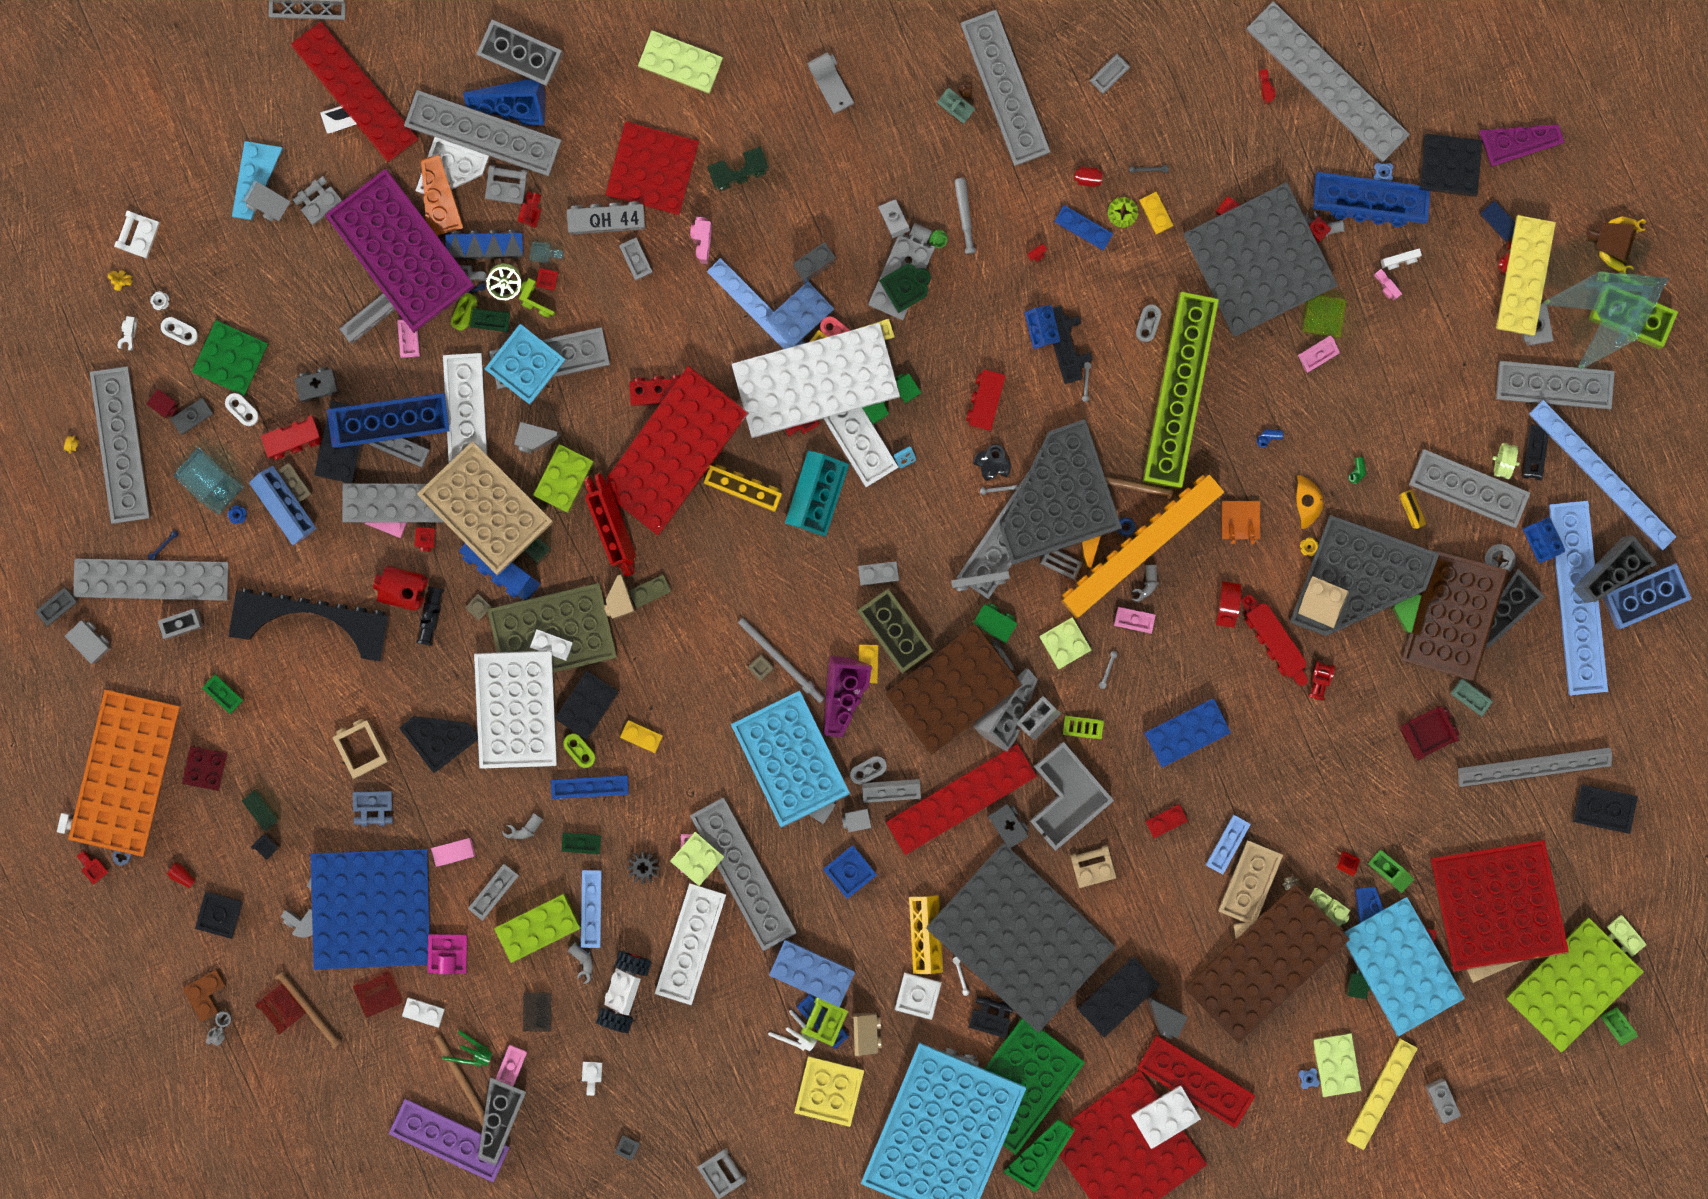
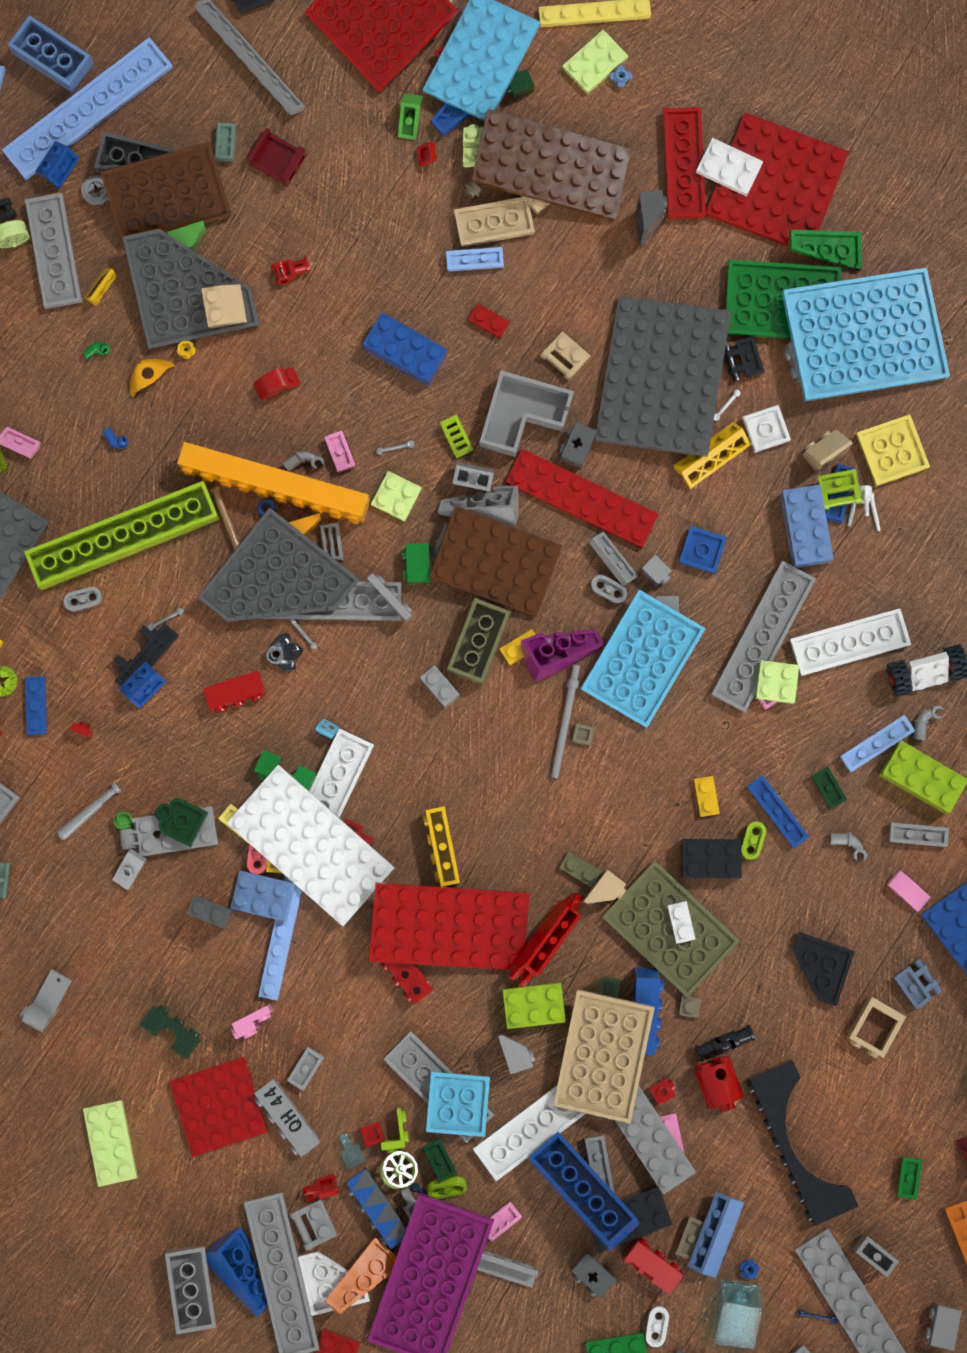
camera: 120 degrees left, 5 degrees down
(515, 709) = (755, 917): white plate -> none
(638, 872) = (820, 725): dark grey gear -> none
(817, 493) = (406, 782): teal slope -> none
(1118, 996) = (657, 267): black brick -> none
(1240, 520) = (200, 418): orange plate -> none
(1275, 639) = (280, 326): red hinge -> none
(1614, 569) = (44, 91): dark grey wedge -> none

